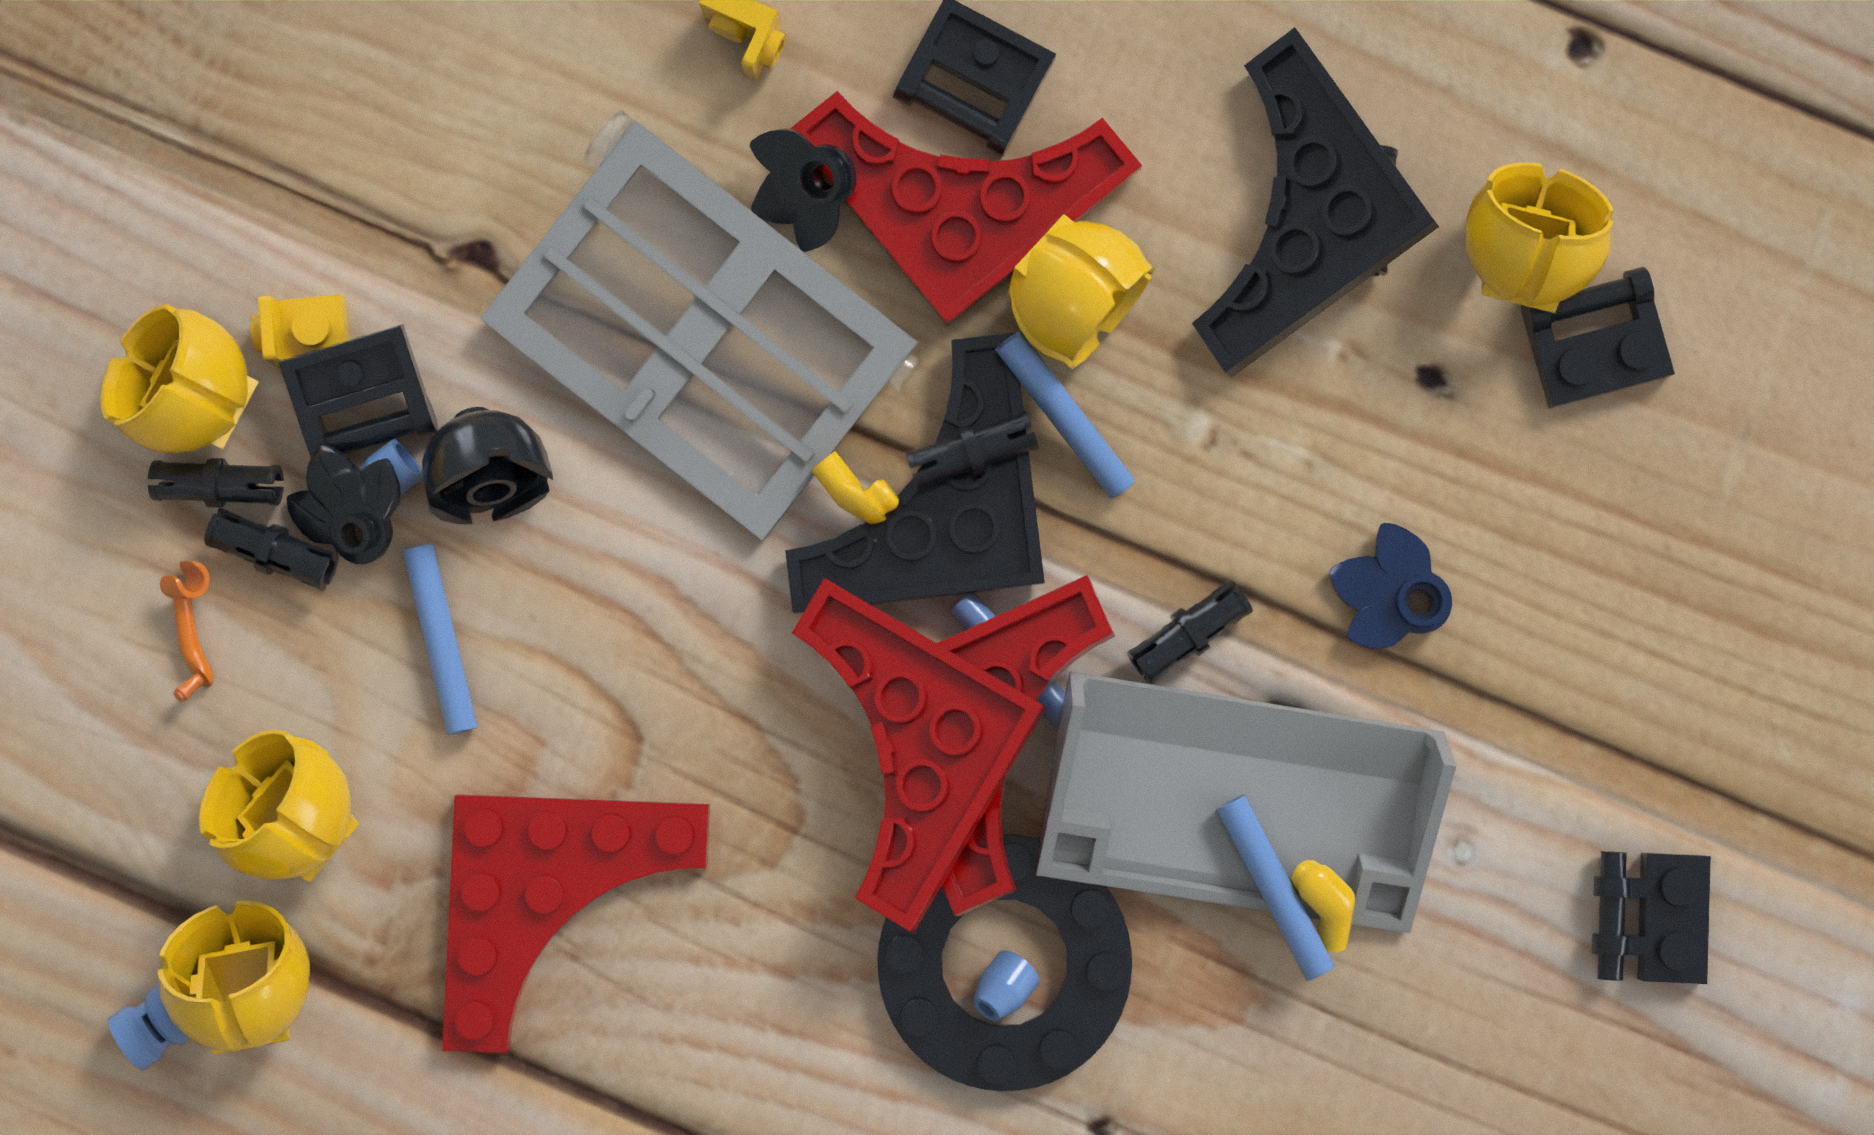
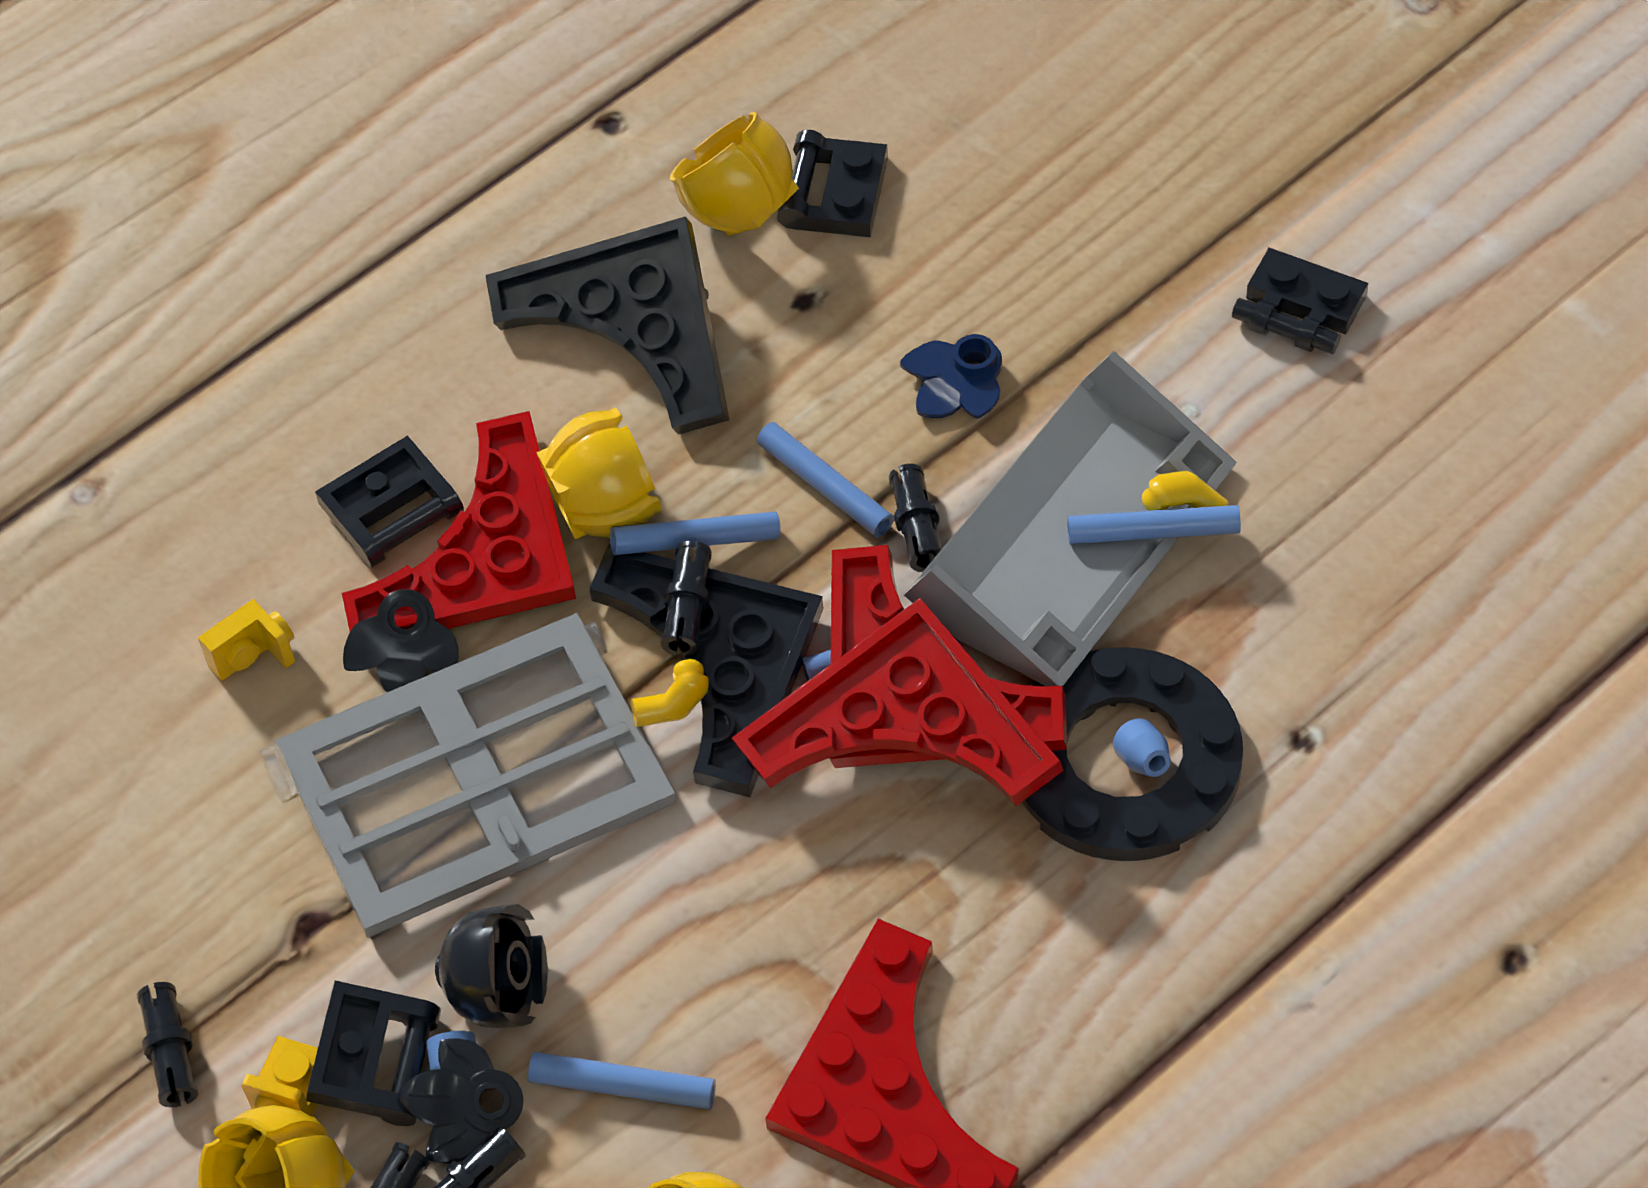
camera: 60 degrees left, 30 degrees down
(290, 194) = (167, 1044): none -> black pin
(1201, 511) = (825, 479): none -> medium blue piece

